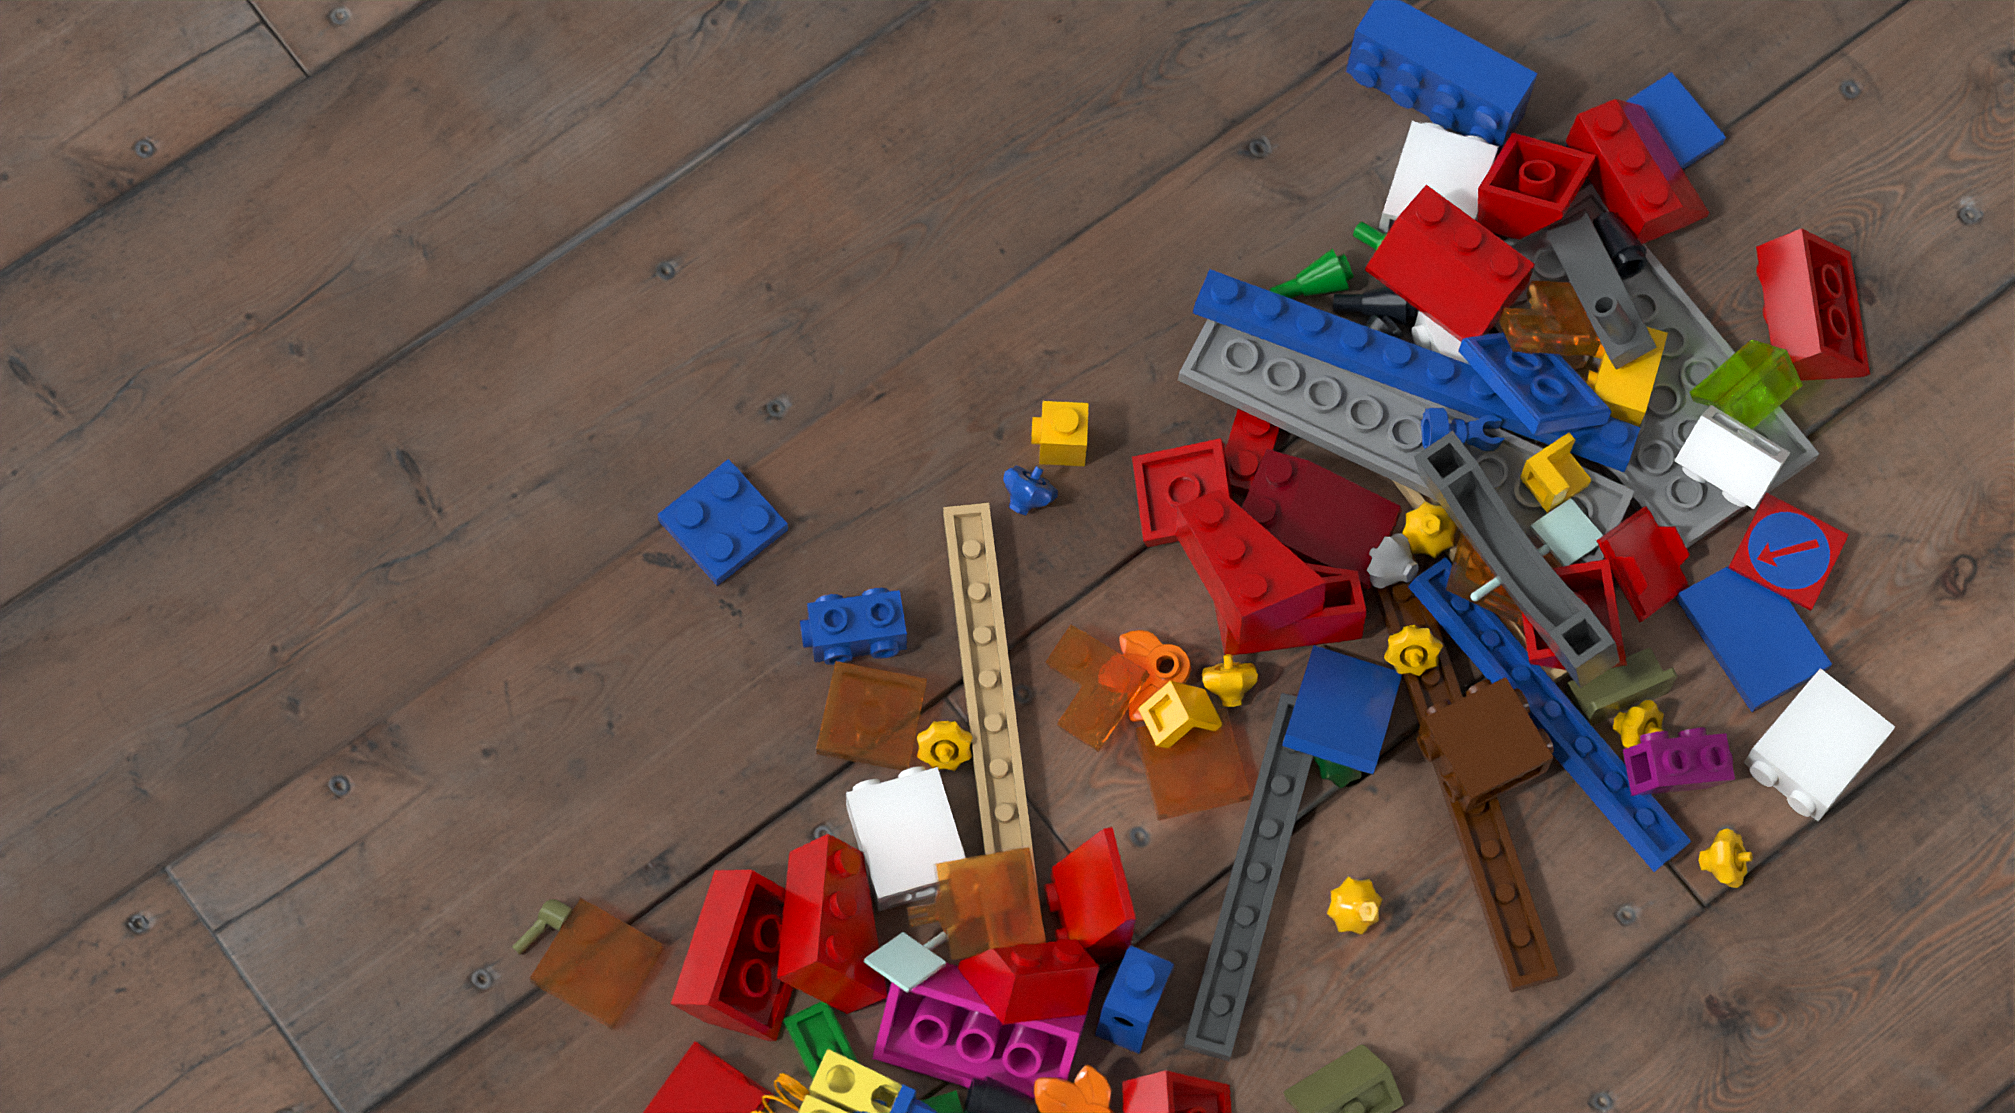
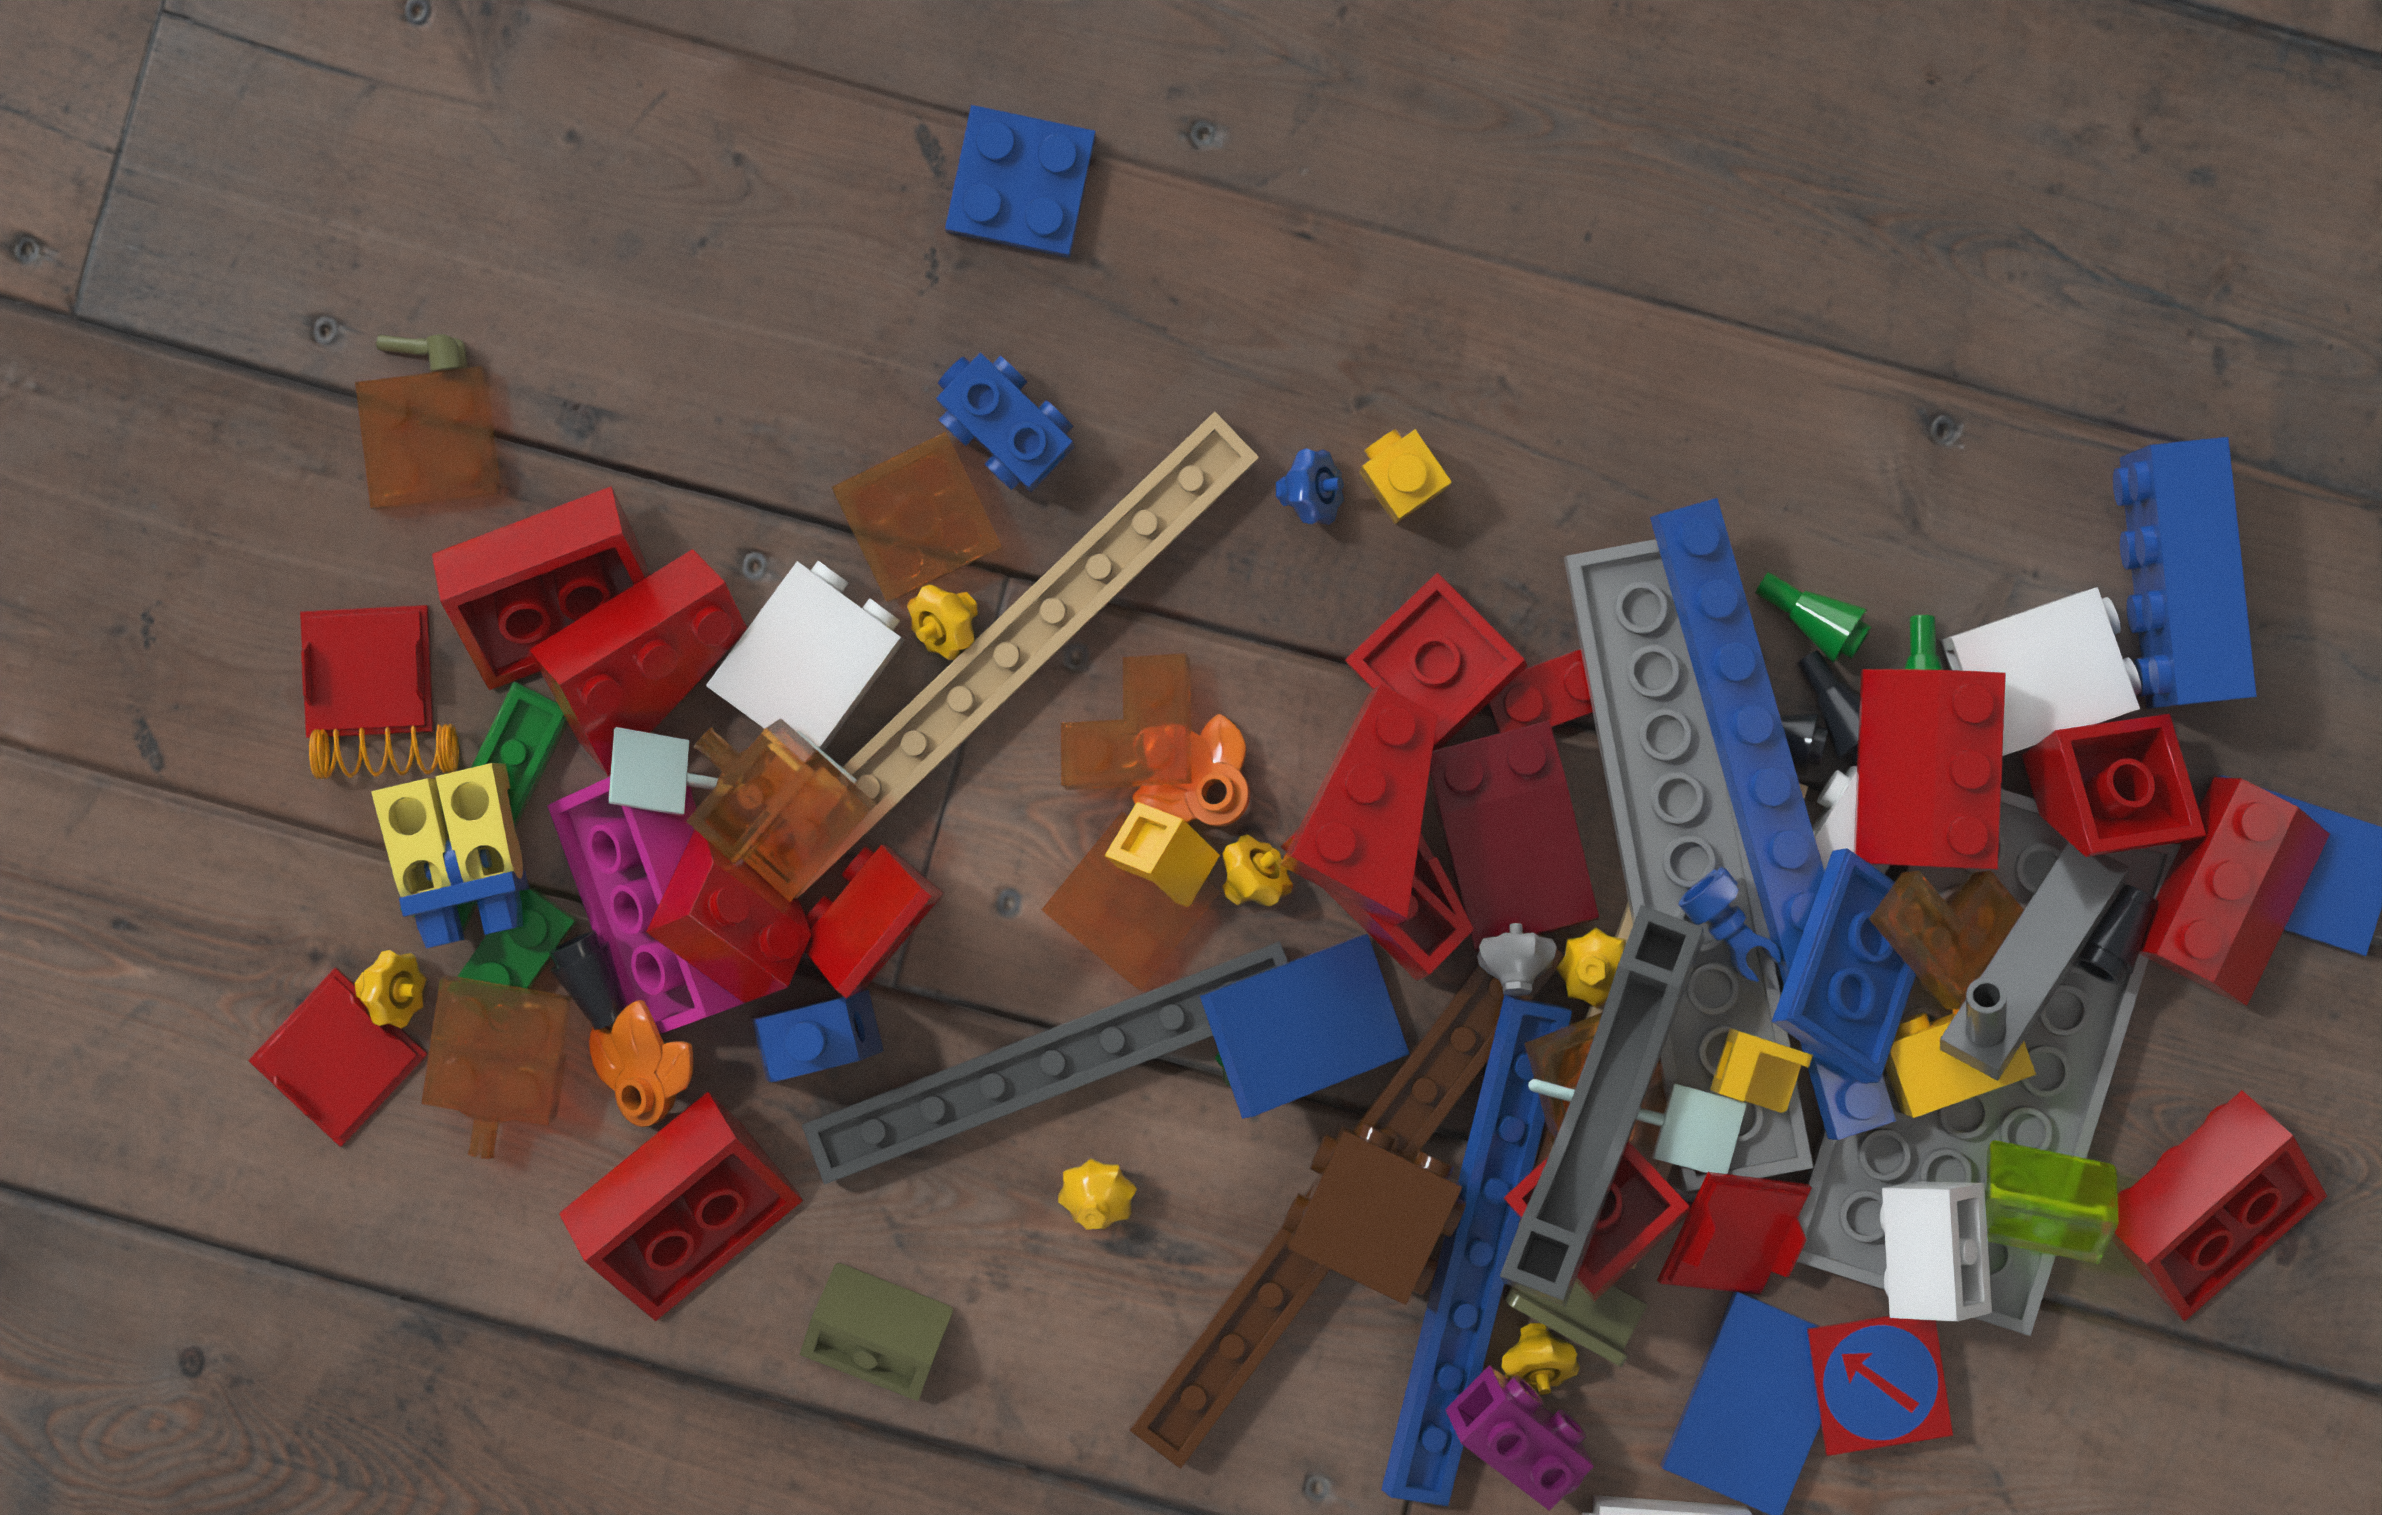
camera: 65 degrees right, 20 degrees up
(1413, 650) = (1431, 1053): yellow piece -> none

